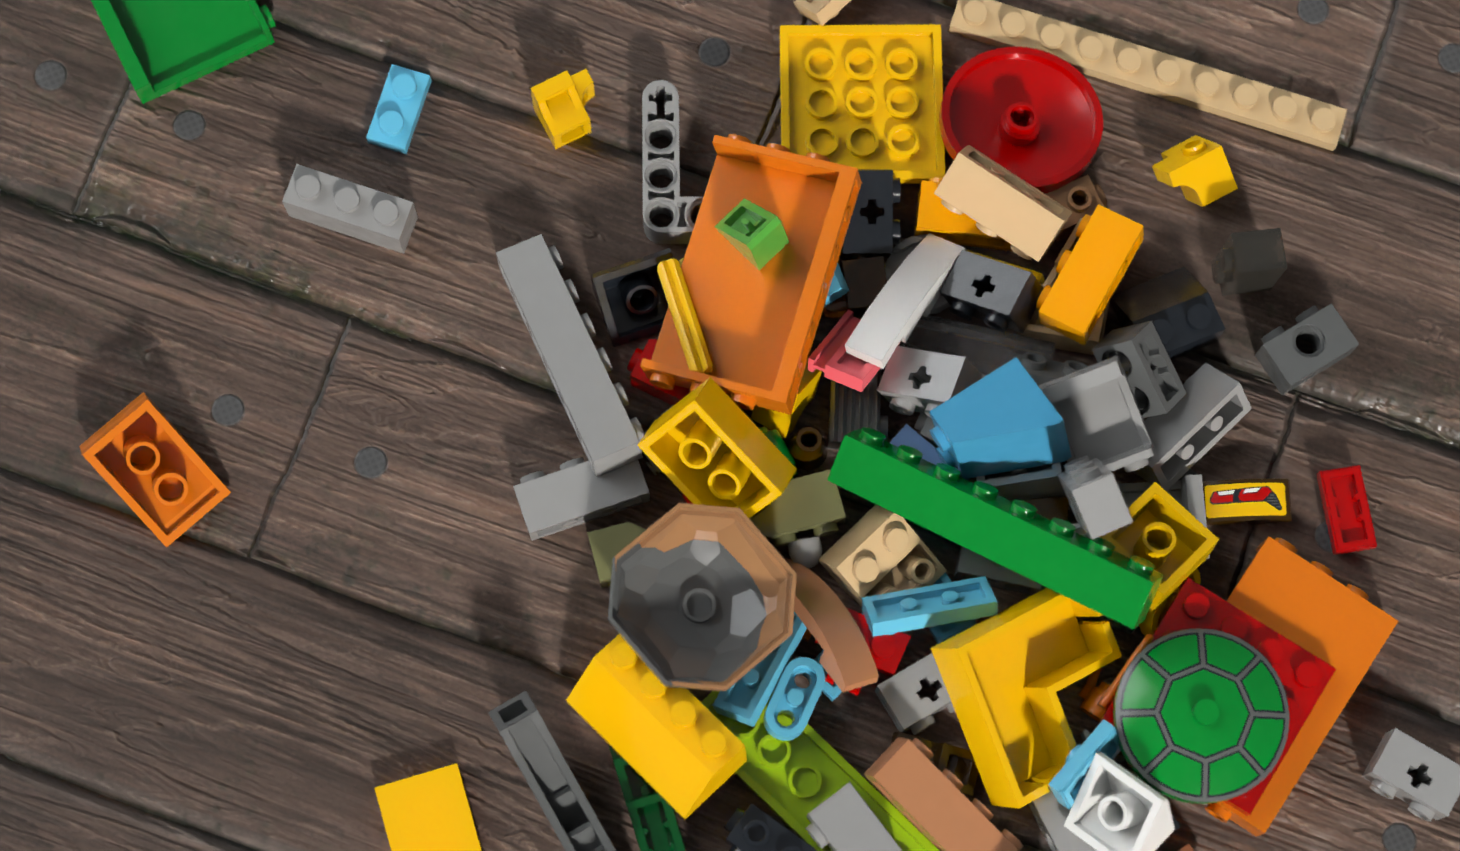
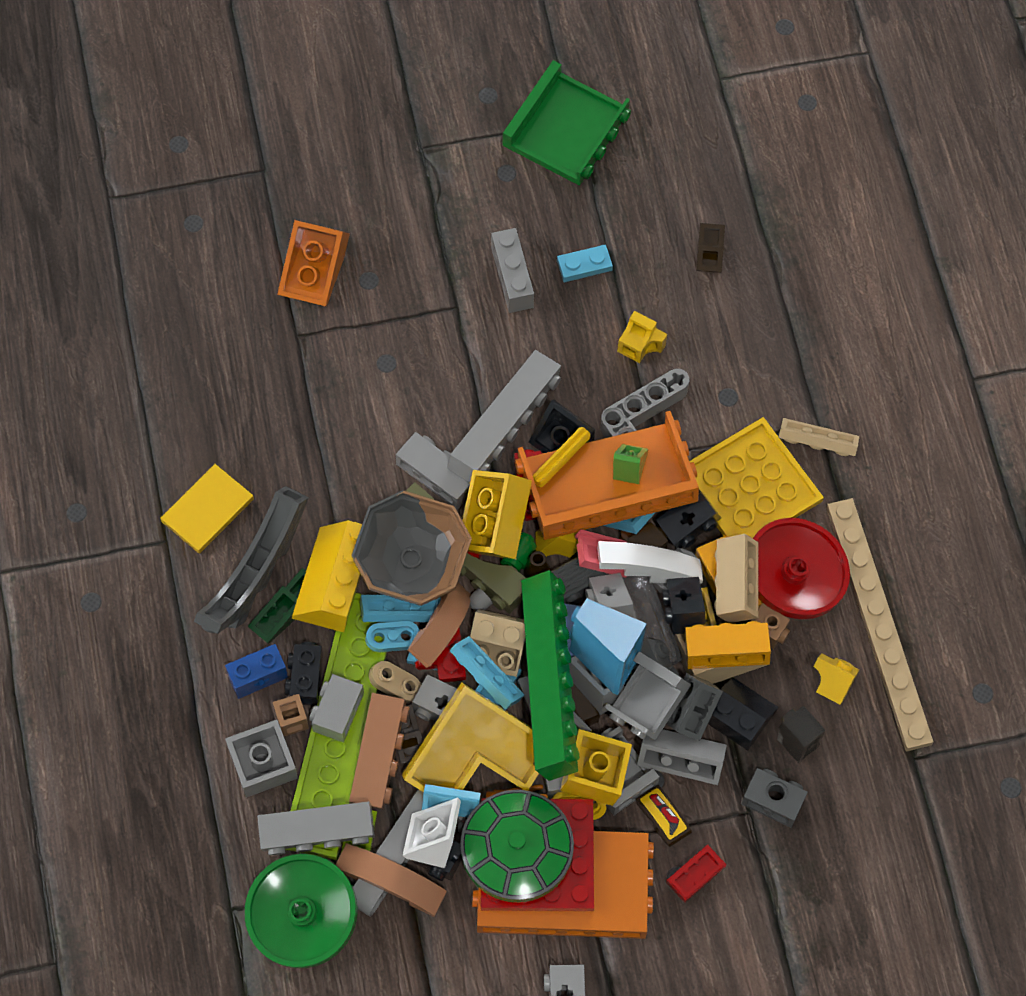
camera: 60 degrees right, 10 degrees down
(857, 732) = (395, 683): none -> tan plate
(1094, 496) = (595, 705): light grey brick -> none

